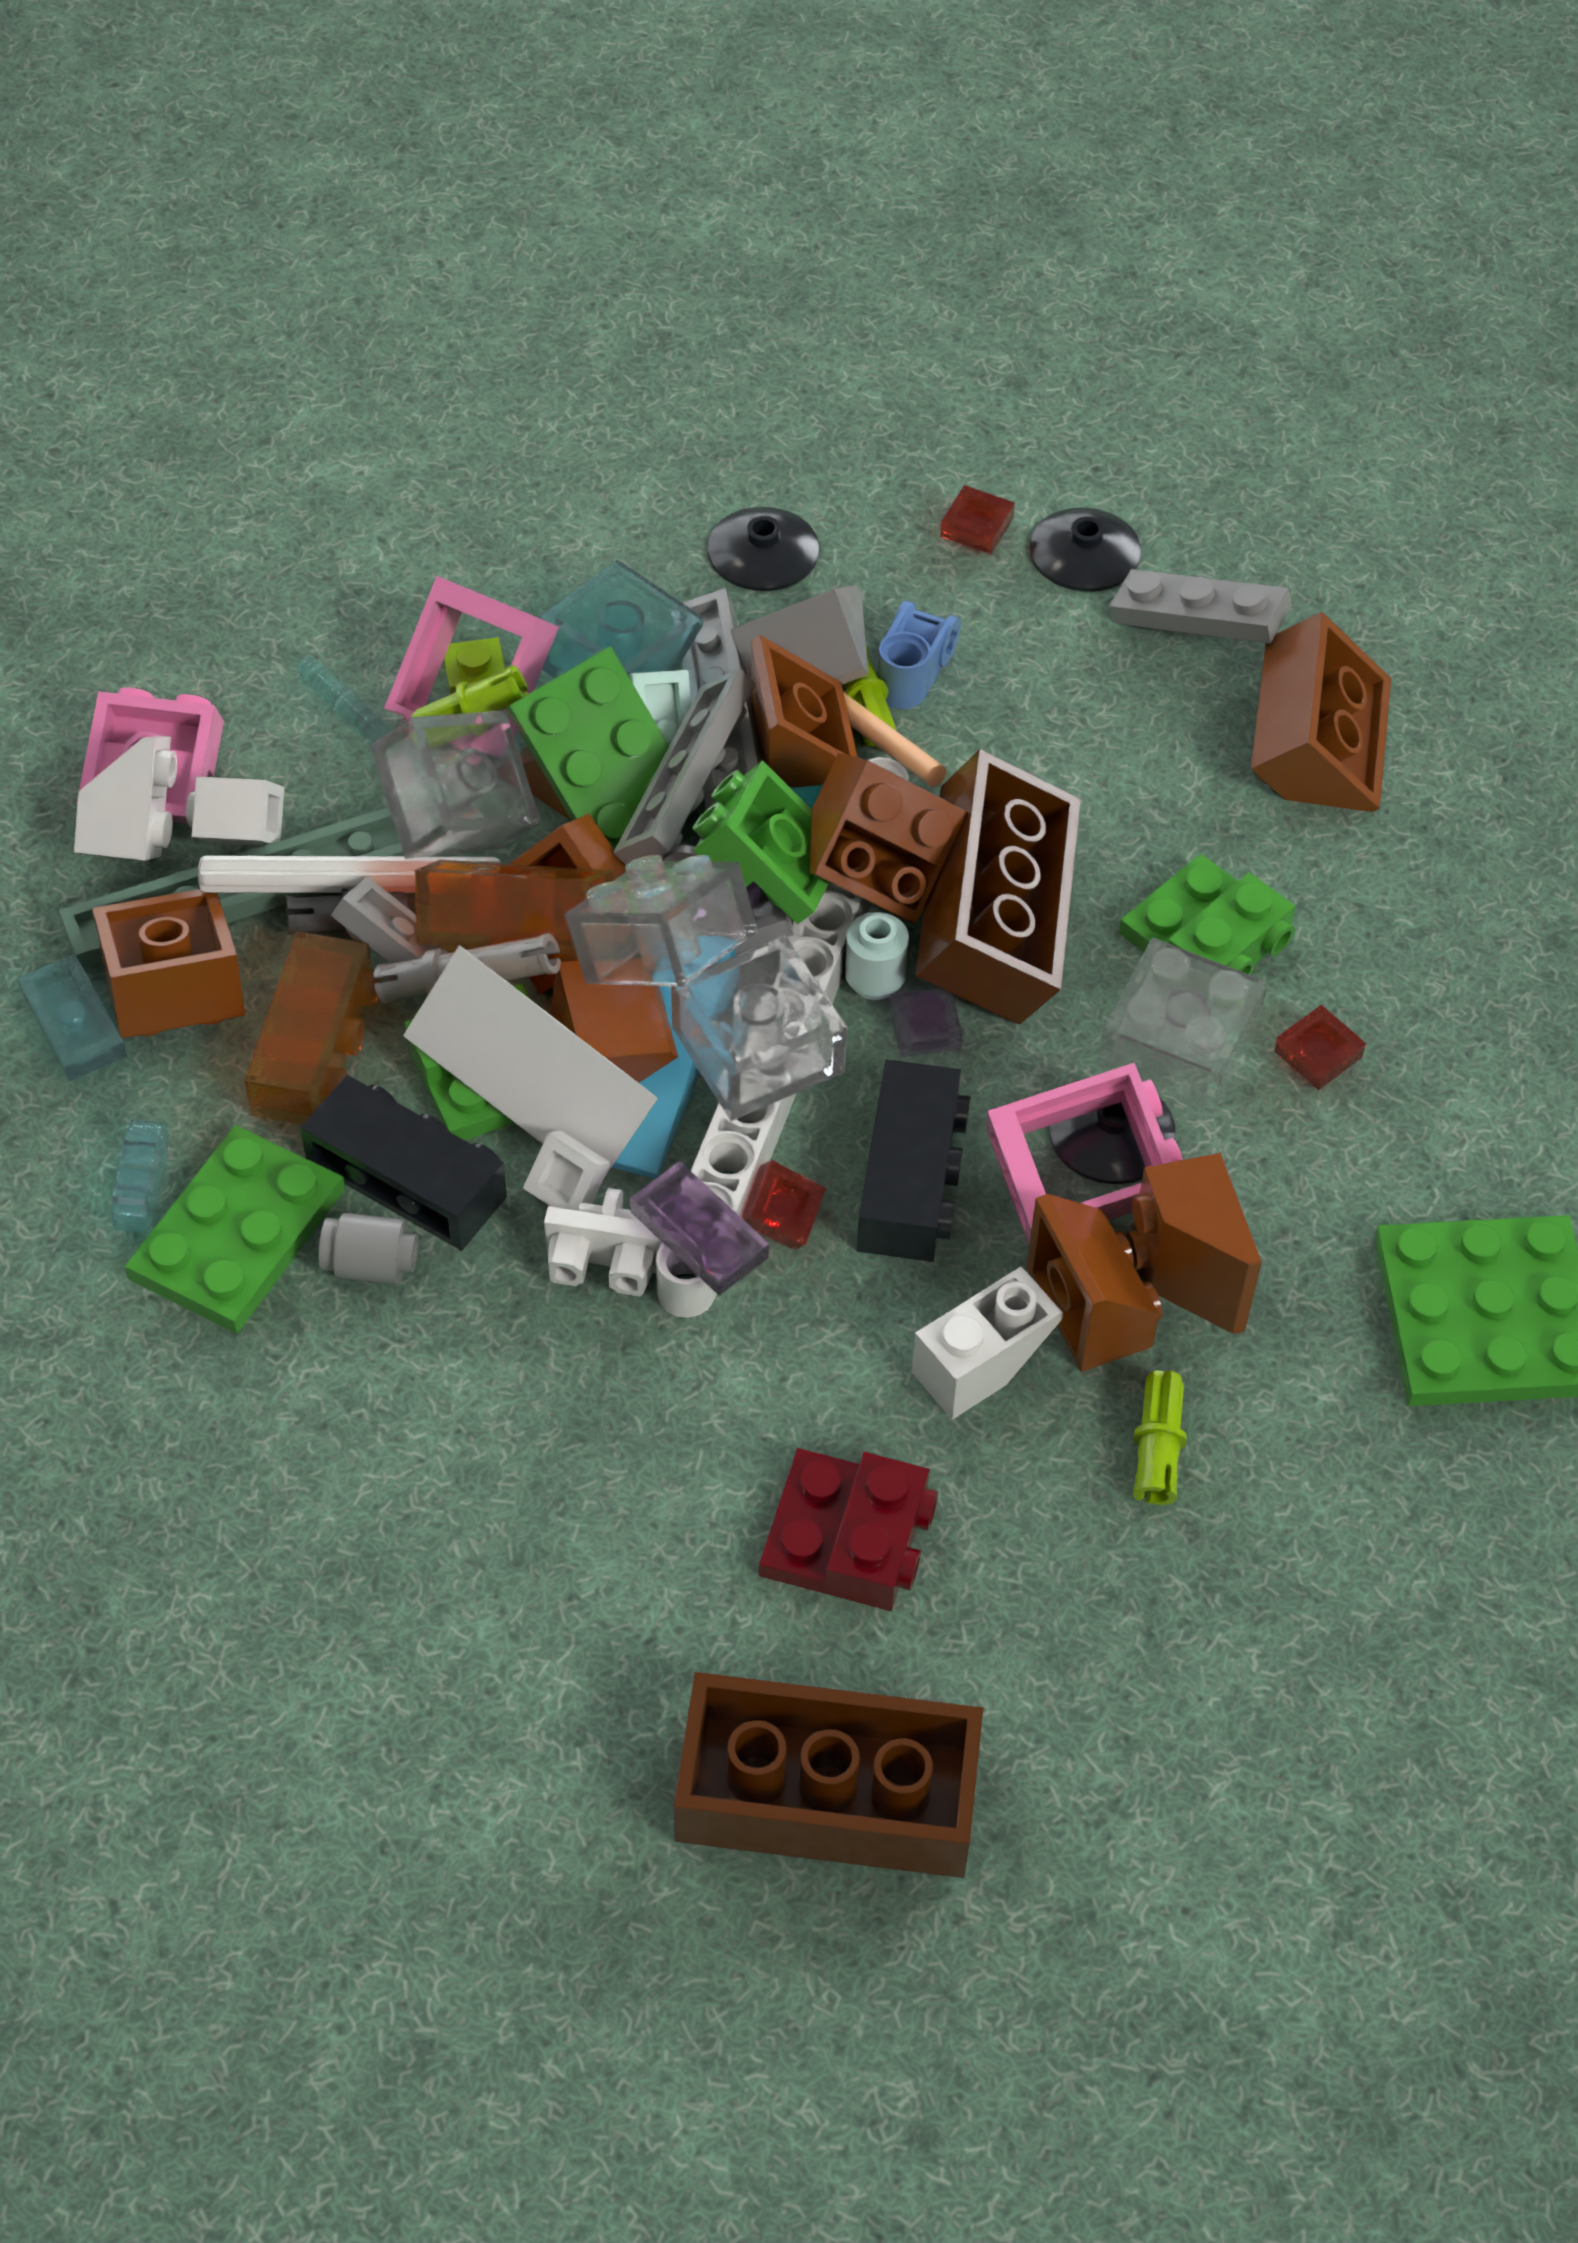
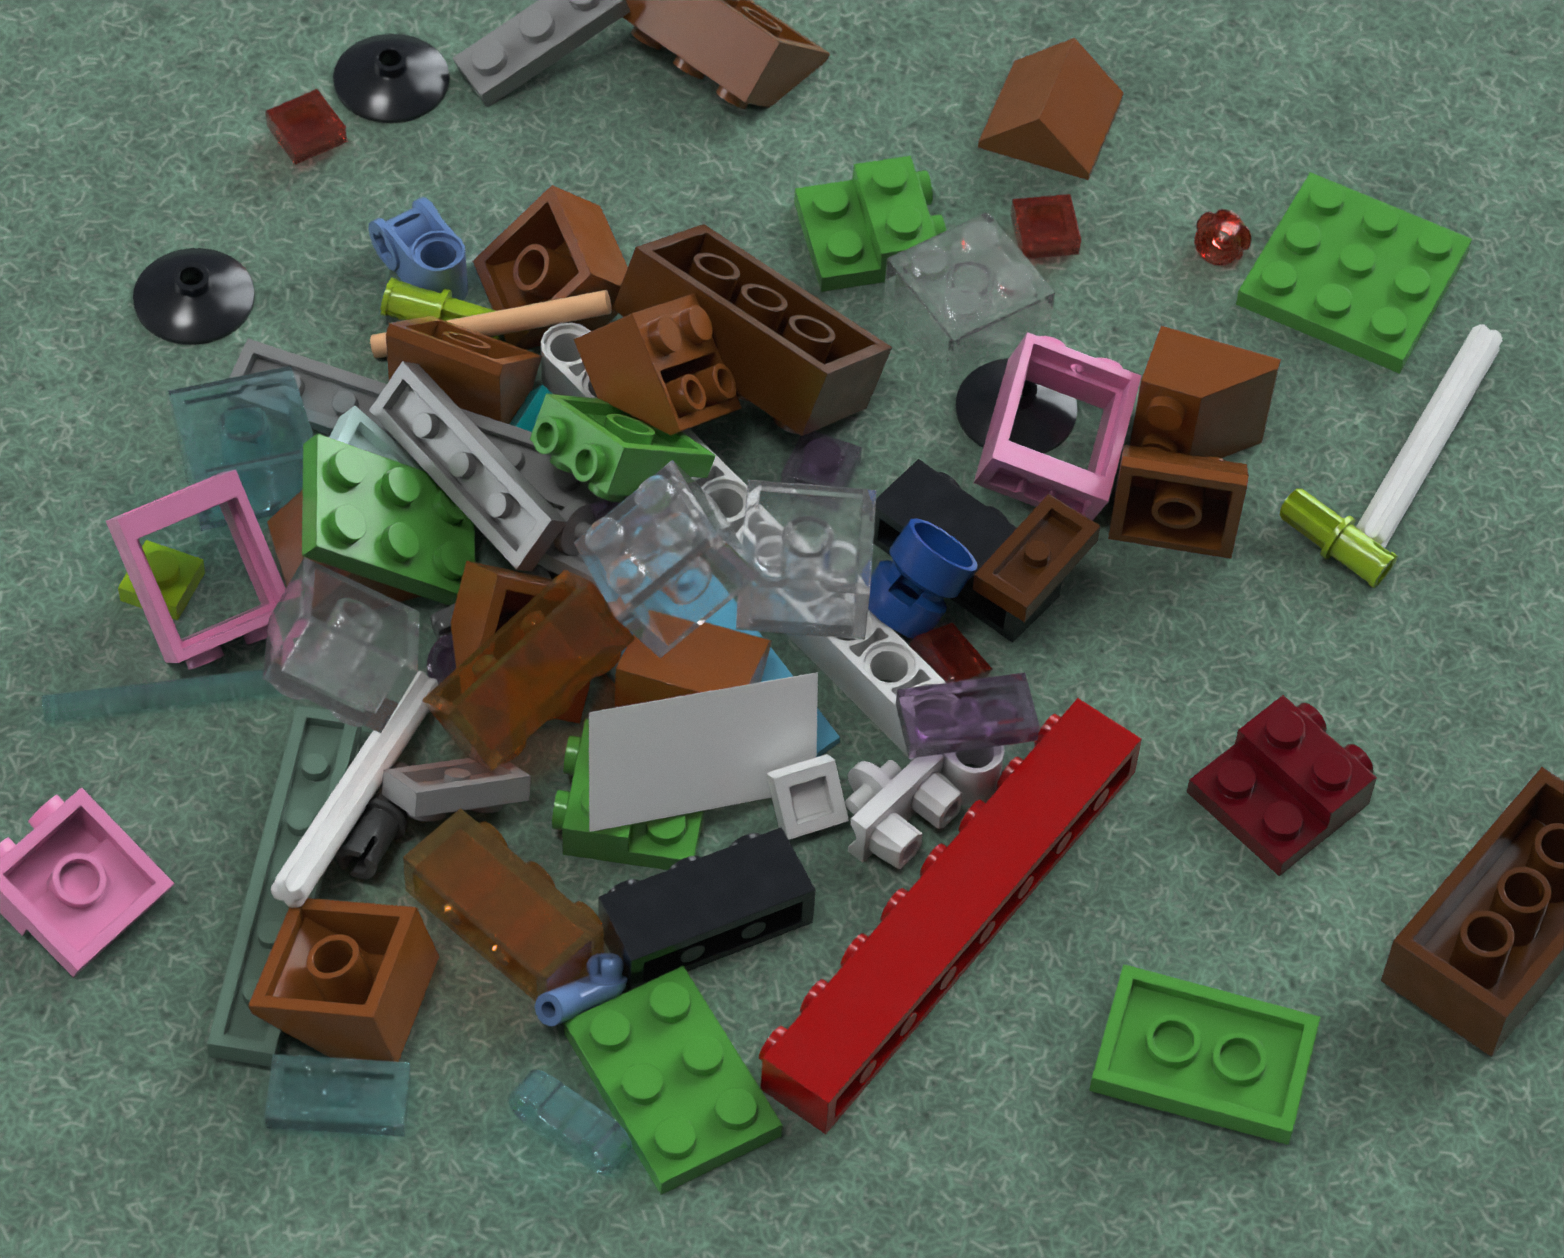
camera: 60 degrees left, 0 degrees up
(125, 804) = (132, 919): white slope -> none
(235, 811) = (208, 840): white brick -> none
(266, 1121) = (583, 994): none -> medium blue arm
(368, 1248) = (777, 982): light grey brick -> none
(481, 696) = (258, 586): lime axle -> none
(507, 959) = (558, 744): light grey pin -> none
(512, 1601) = (1205, 1054): none -> bright green plate
(525, 1335) = (947, 916): none -> red brick
(819, 630) = (353, 307): light grey slope -> none
(826, 1127) = (923, 572): none -> blue wheel
(876, 955) = (748, 446): light aqua brick -> none
(907, 1196) = (1036, 557): none -> reddish brown plate
(983, 716) = (550, 254): none -> dark orange slope
(983, 1342) = (1185, 596): white slope -> none
(1345, 1460) = (1430, 434): none -> white axle
(1430, 1183) = (1215, 246): none -> clear red plate
(1461, 996) = (1054, 110): none -> dark orange slope

